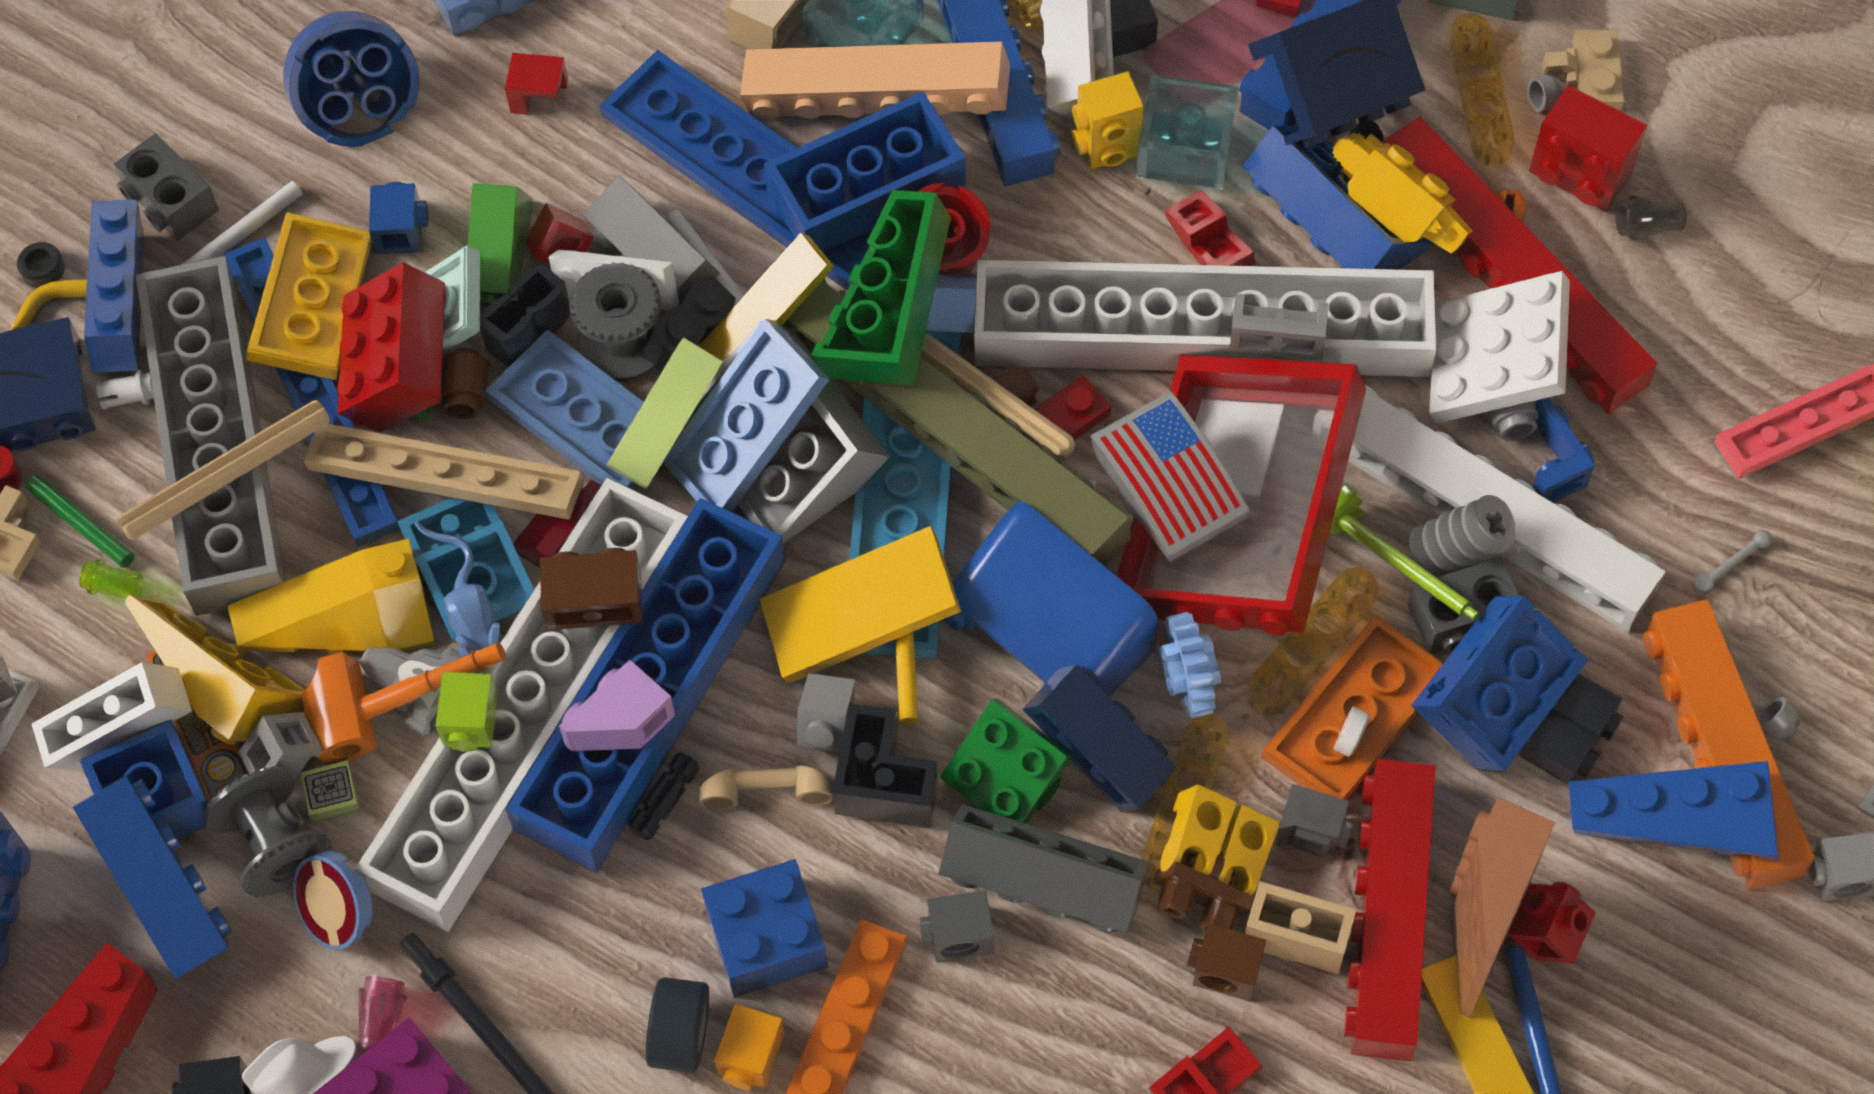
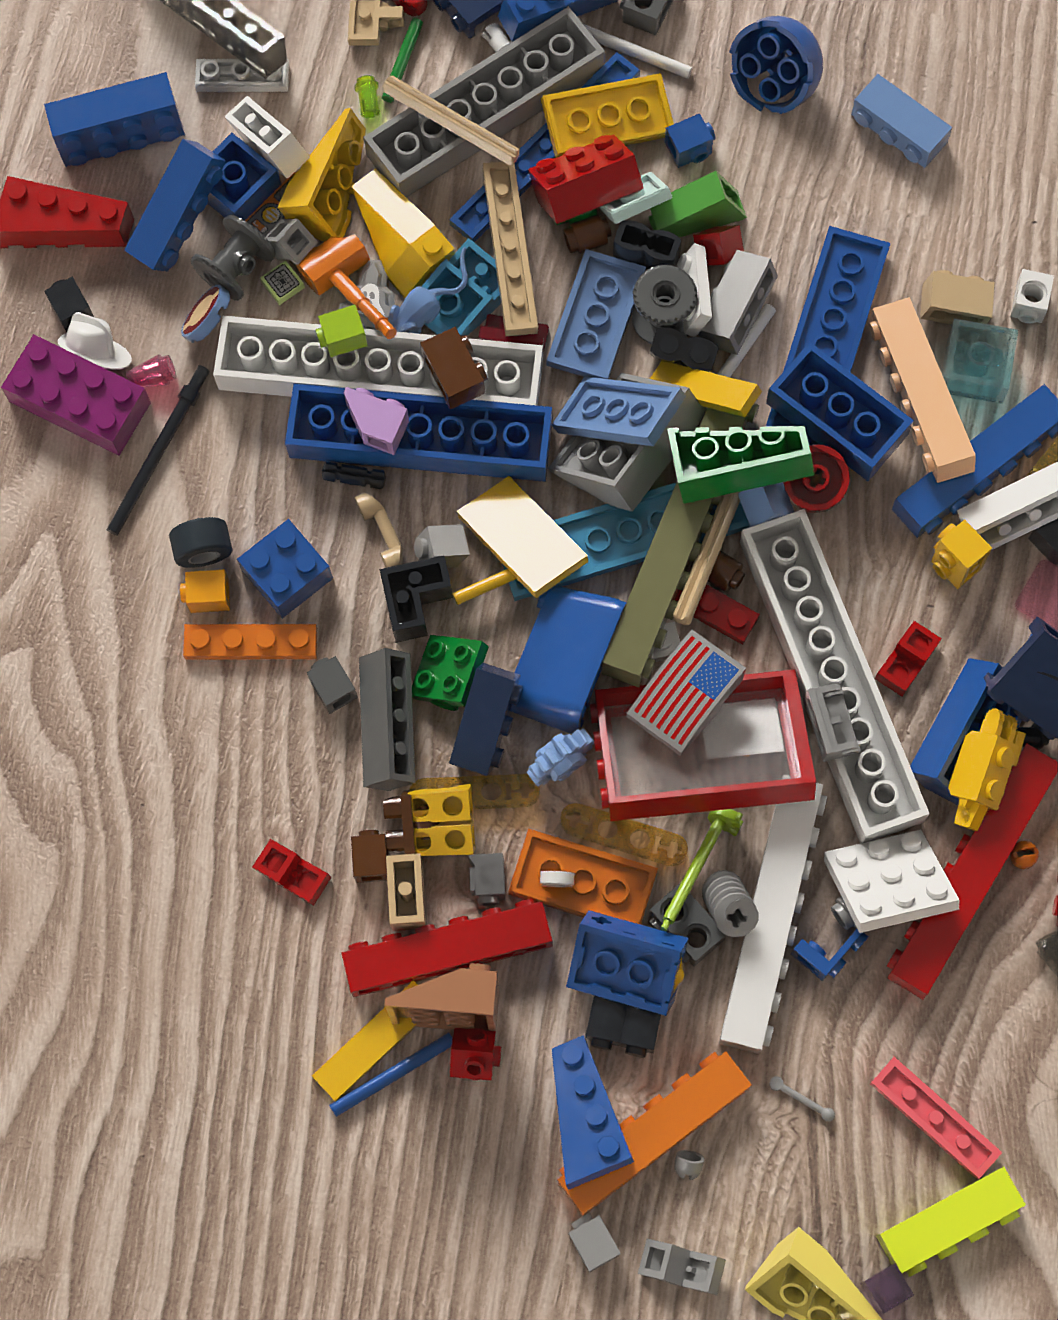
camera: 70 degrees right, 10 degrees up
(533, 76) = (830, 176): red panel -> none
(664, 413) = (606, 360): yellowish green slope -> none
(1187, 131) = (979, 610): clear light blue brick -> none

